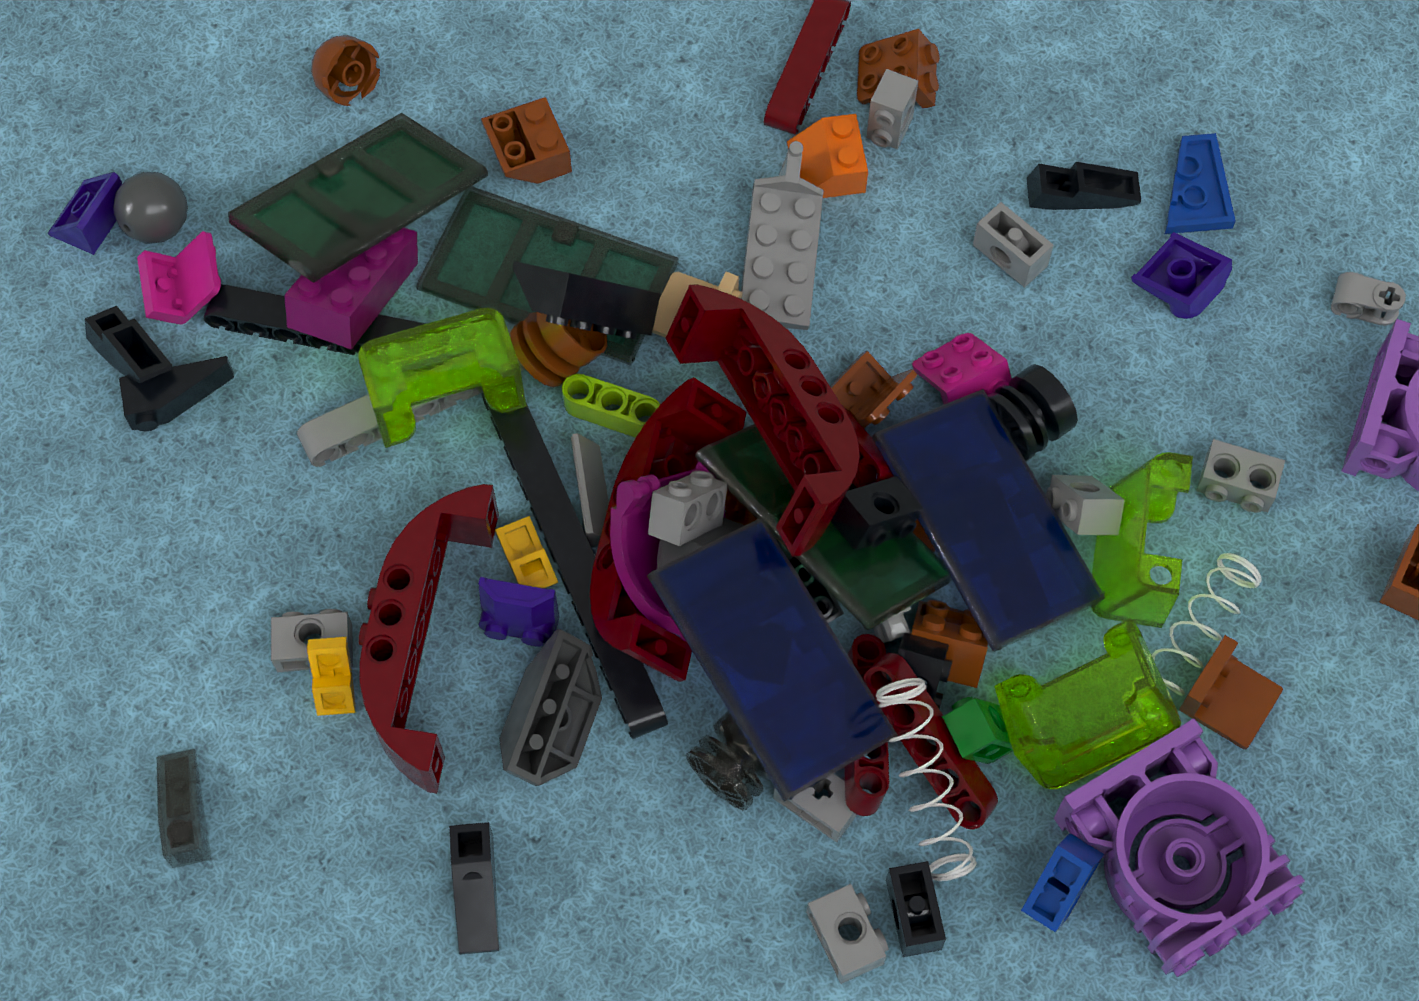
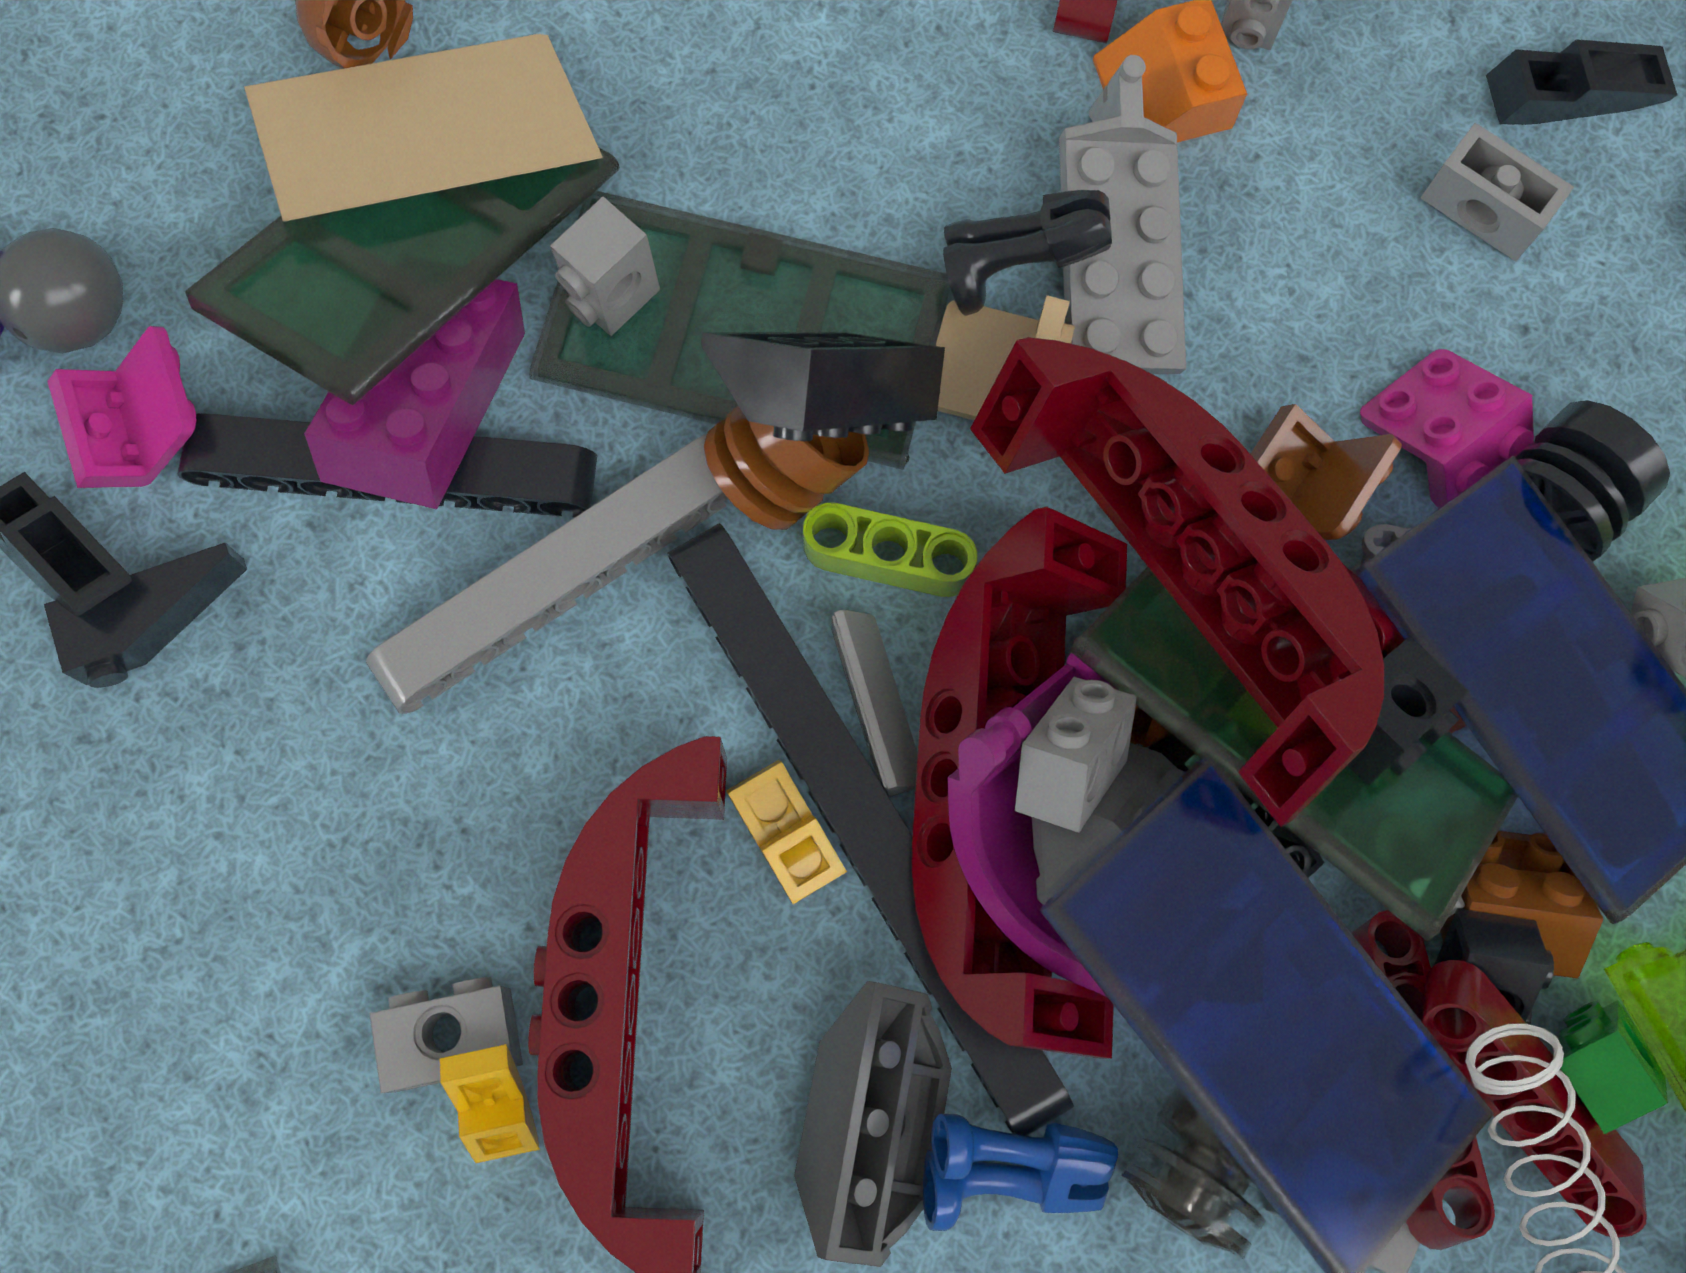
camera: 10 degrees left, 10 degrees up
(374, 137) = (418, 125): none -> tan sticker
(440, 362) = (588, 523): clear neon green windscreen -> none
(469, 228) = (605, 267): none -> light grey brick
(517, 611) = (791, 945): dark purple slope -> none
(528, 142) = (678, 103): dark orange slope -> none
(653, 762) = (1060, 1171): none -> blue piece
(740, 236) = (1063, 232): none -> black piece

